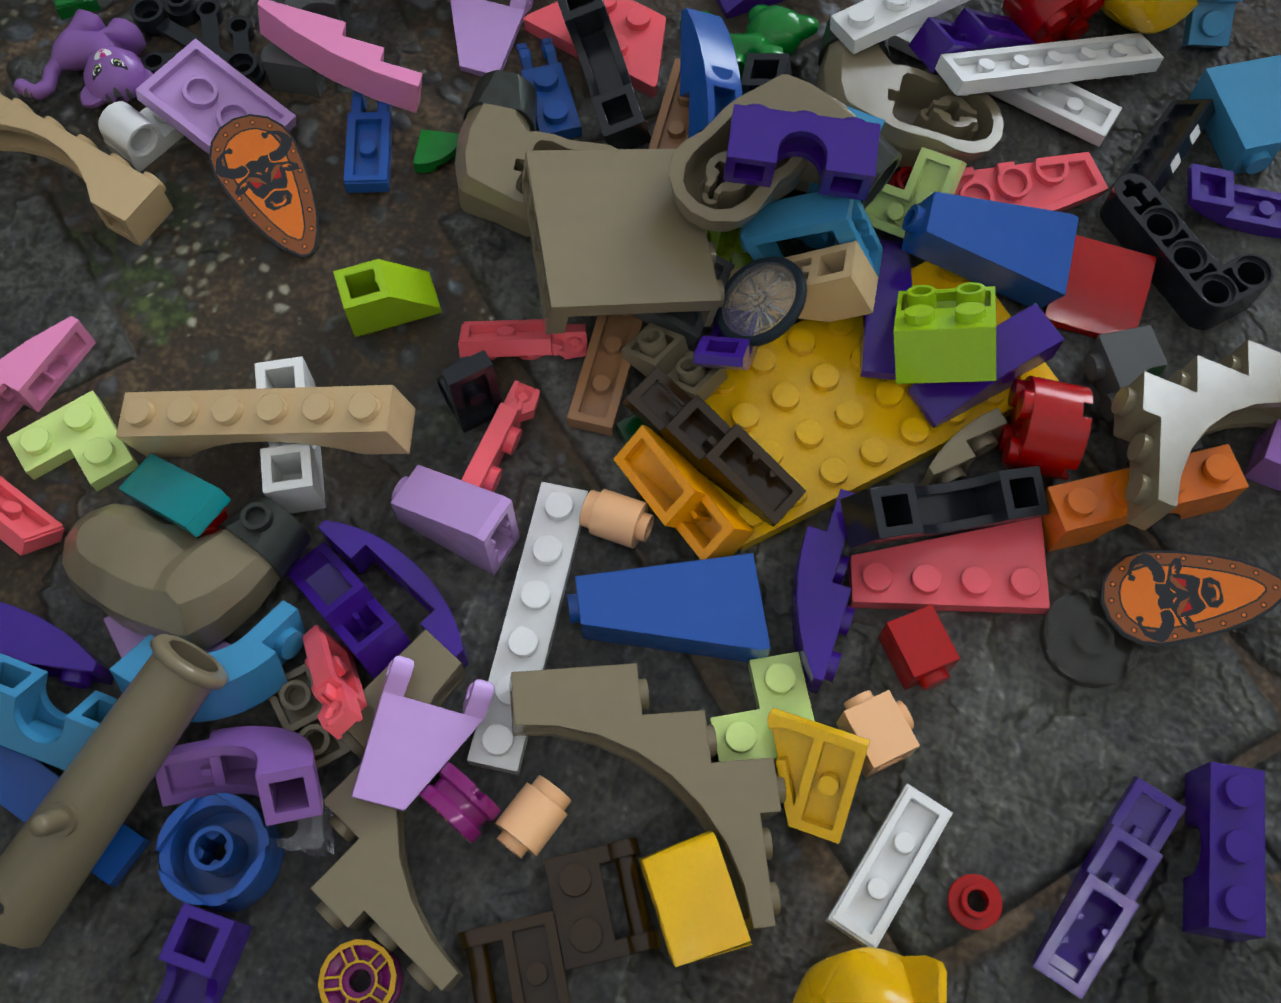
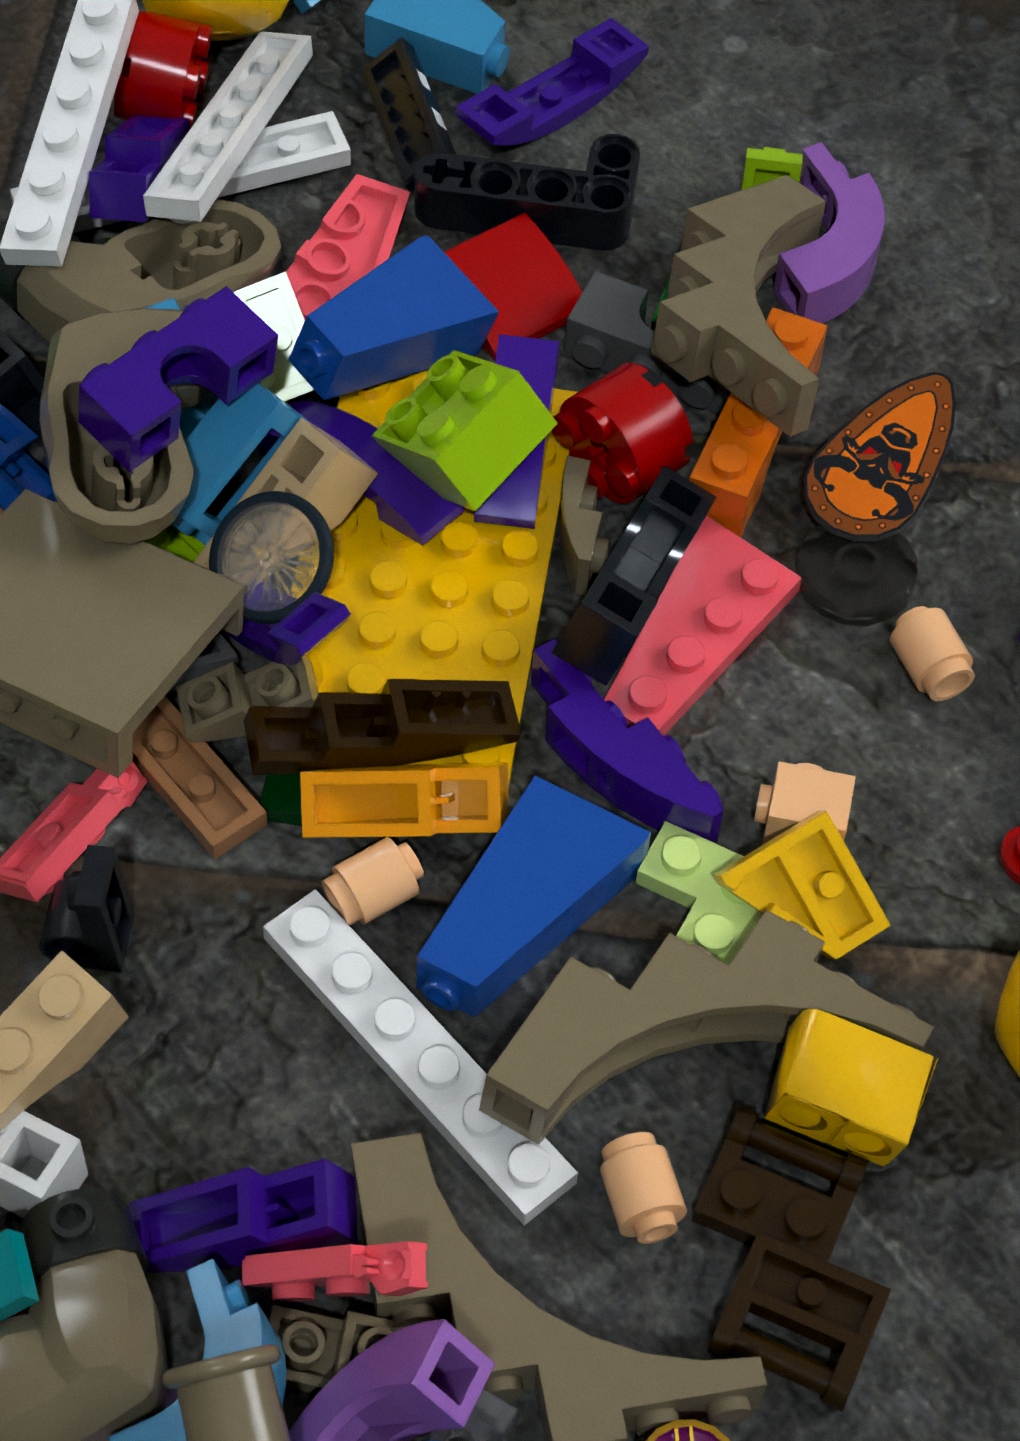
camera: 55 degrees left, 10 degrees down
(363, 549) = (254, 1135): dark purple slope -> none
(413, 738) = (469, 1229): lavender flag -> none
(457, 516) = (236, 1029): lavender slope -> none
(460, 802) = (571, 1245): magenta wheel -> none
(502, 436) = (176, 936): coral hinge -> none
(889, 867) = (943, 904): white tile -> none
(919, 649) = (752, 713): red brick -> none
(1068, 730) = (932, 653): none -> light nougat brick

